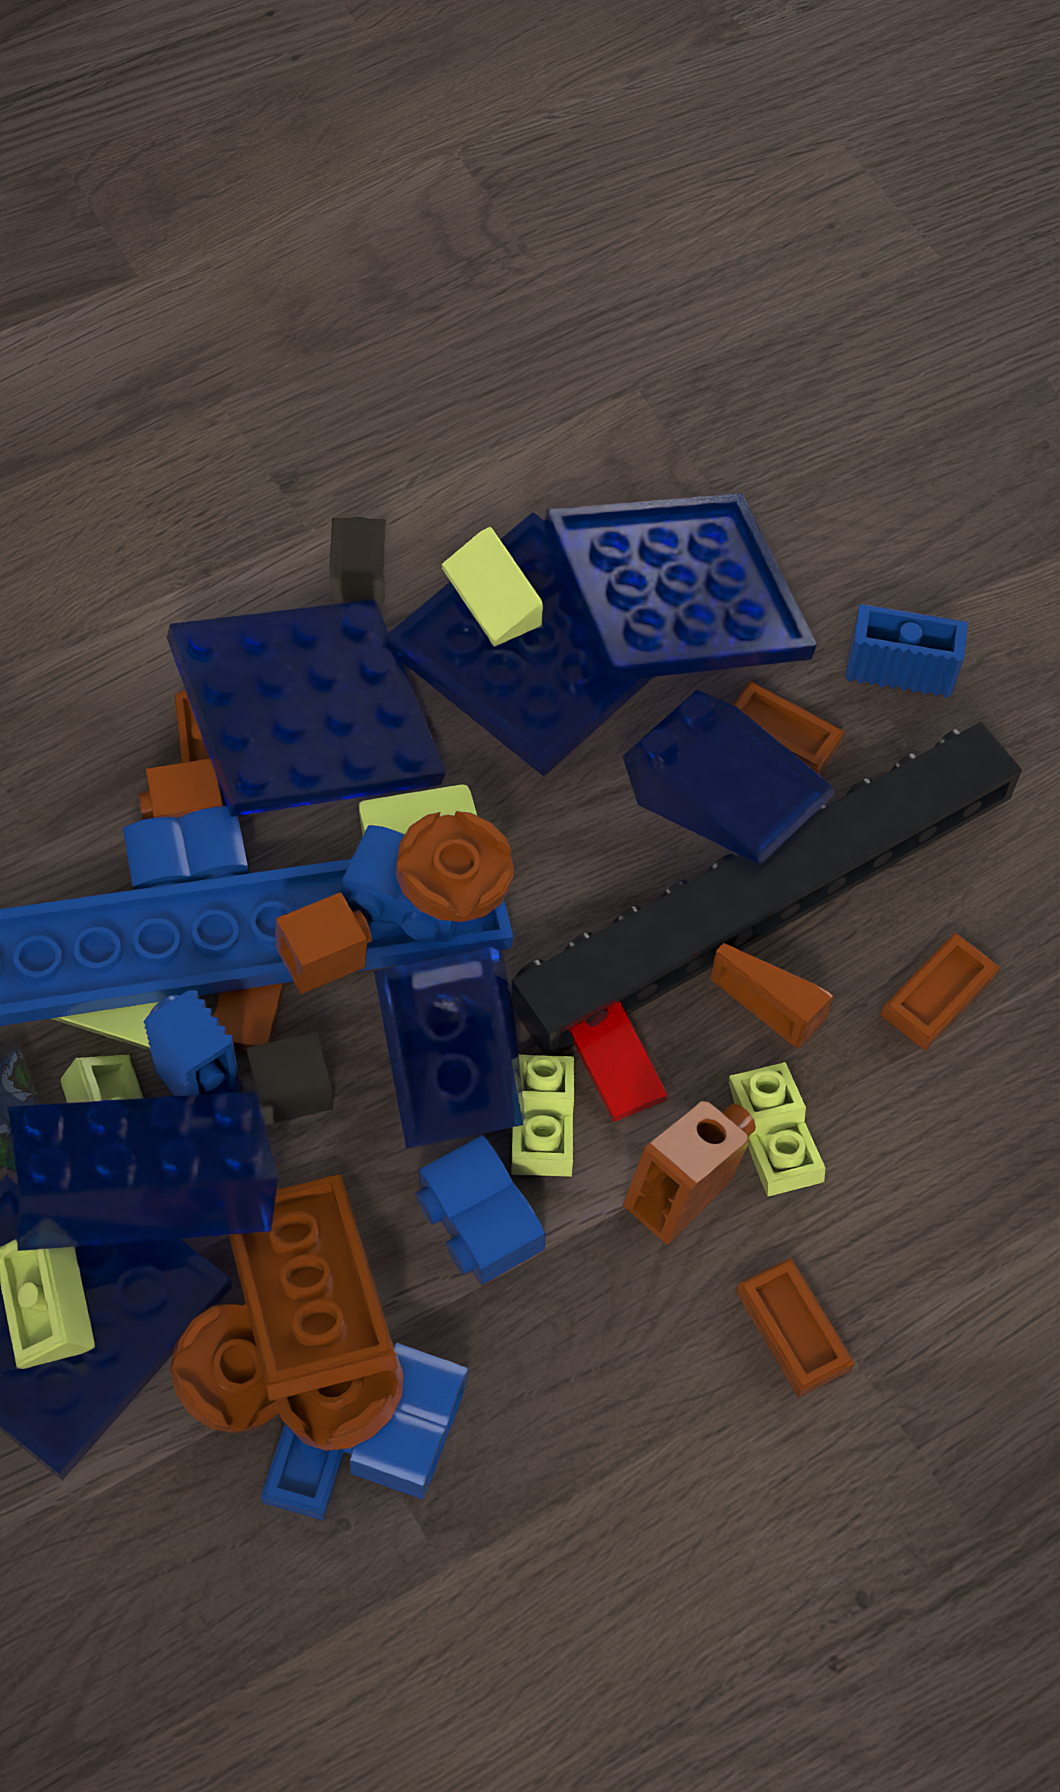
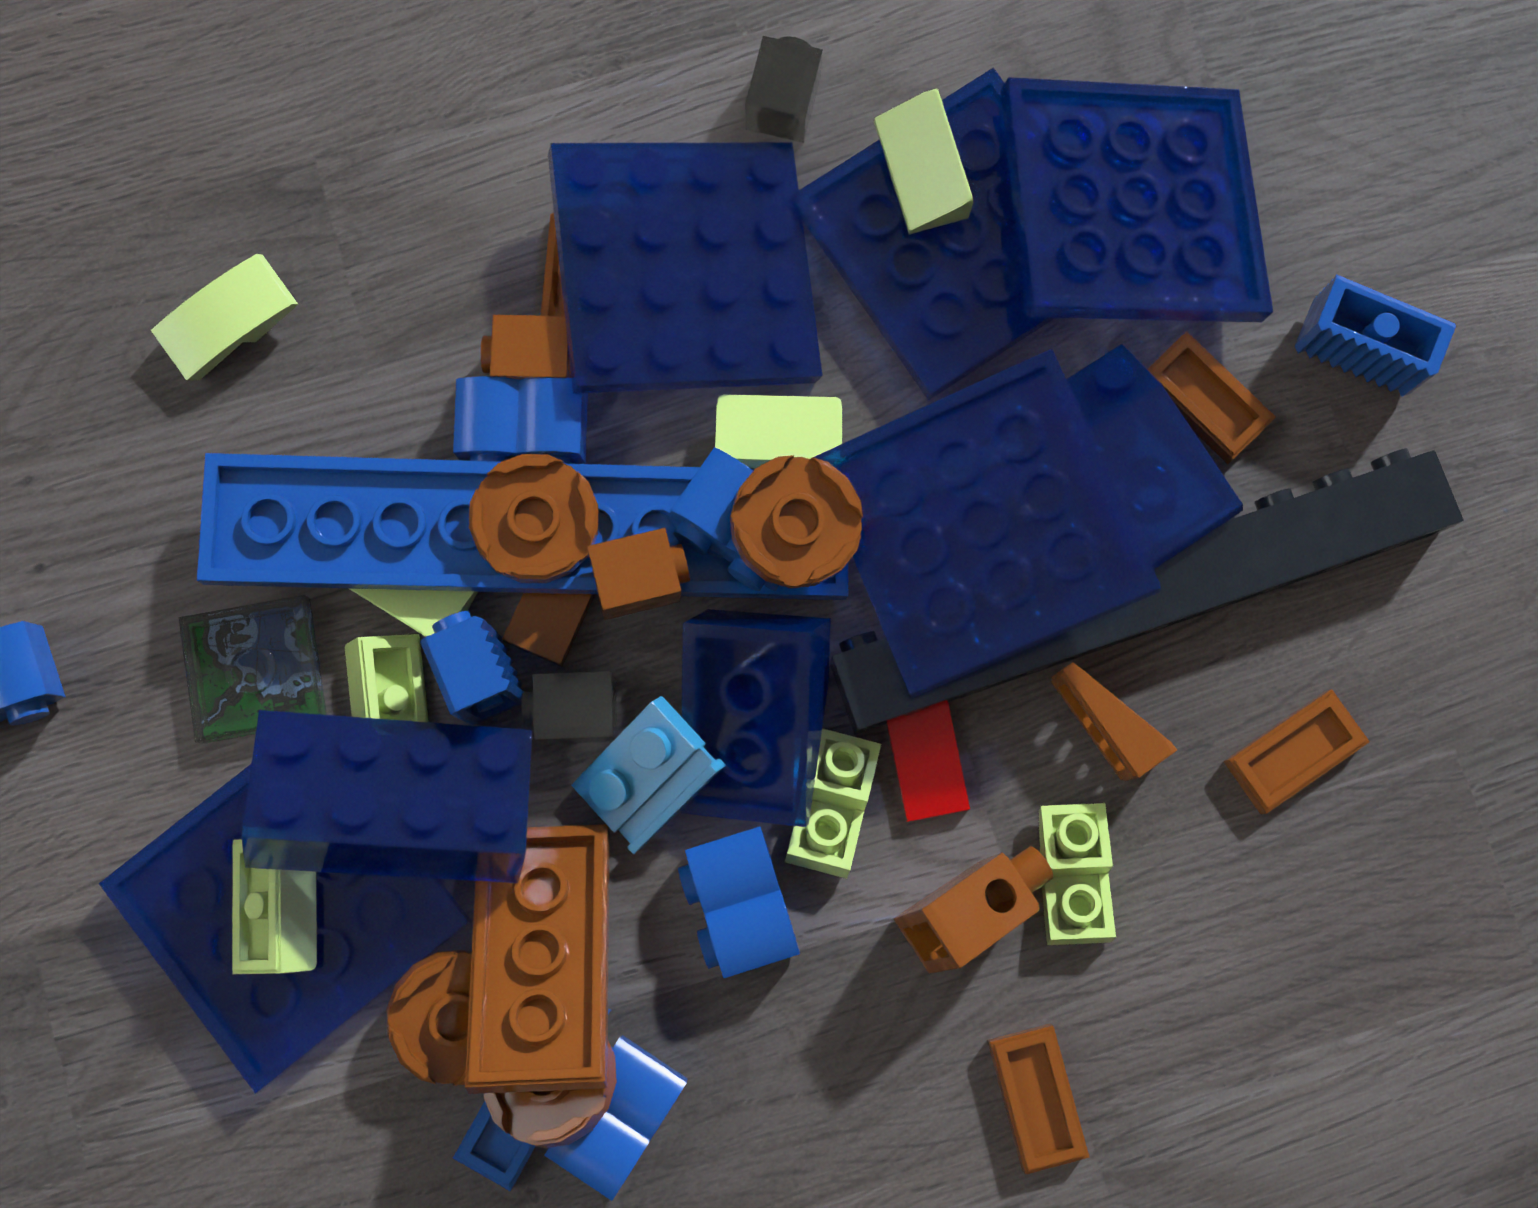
camera: 15 degrees right, 20 degrees up
(235, 925) = (543, 535): none -> dark orange tile
(369, 1117) = (647, 774): none -> dark azure plate
(623, 839) = (989, 524): none -> clear blue plate

